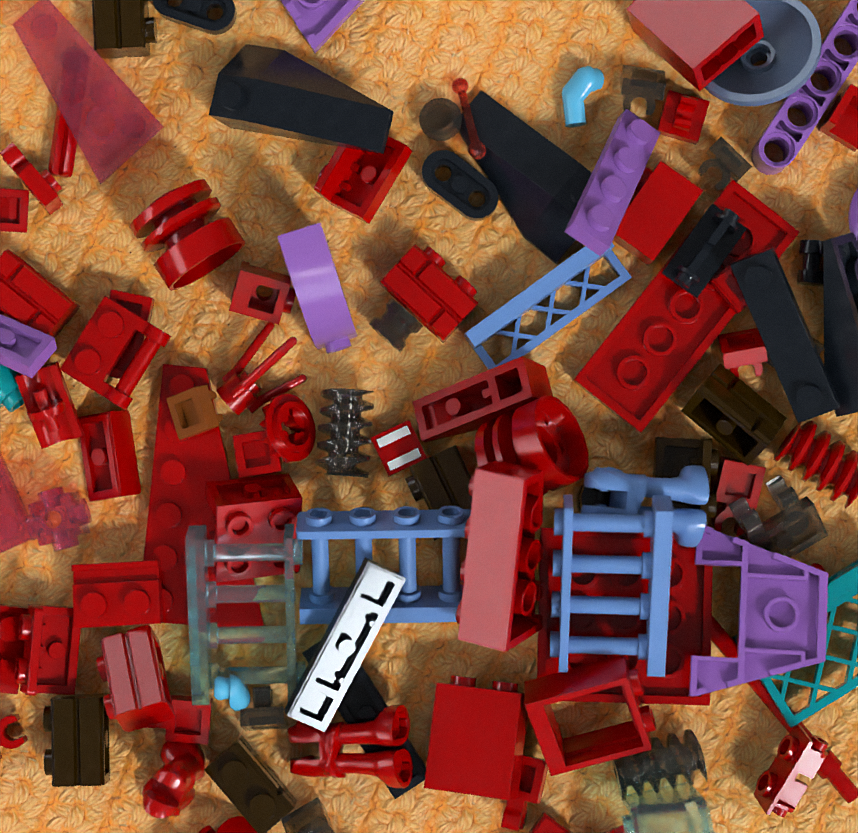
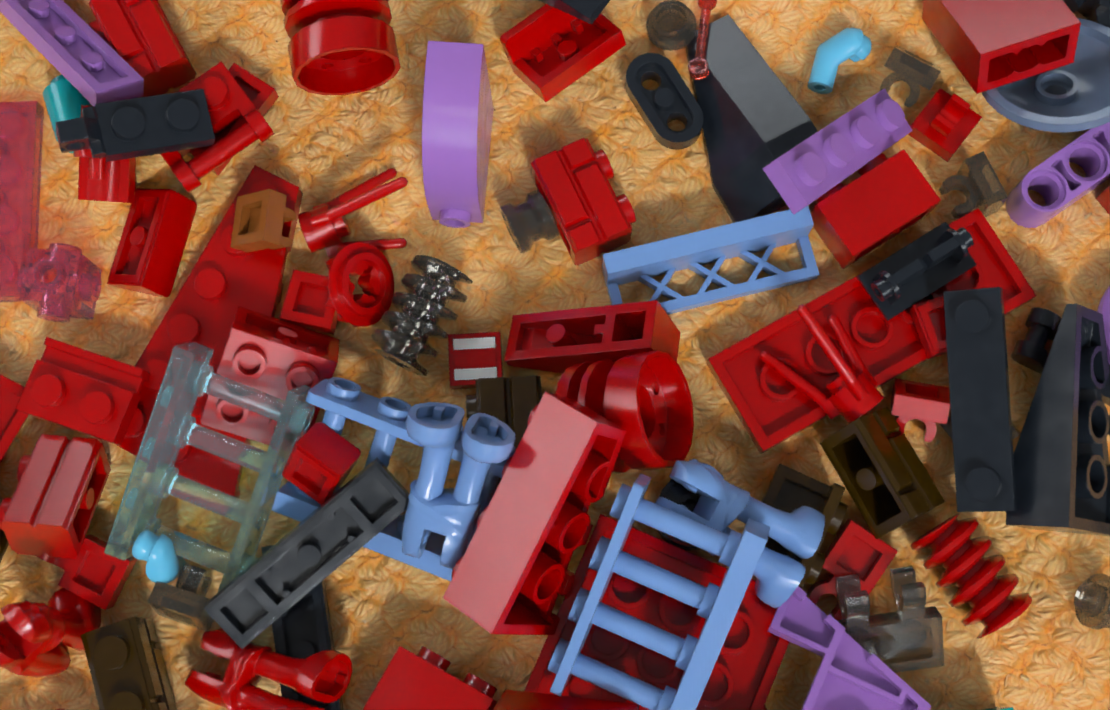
camera: 30 degrees right, 10 degrees down
(75, 378) = (140, 126): none -> black hinge
(248, 302) = (377, 124): red brick -> none
(325, 577) = (320, 462): none -> red slope
(439, 572) = (450, 510): none -> medium blue piece
(689, 363) = (852, 390): none -> red plant

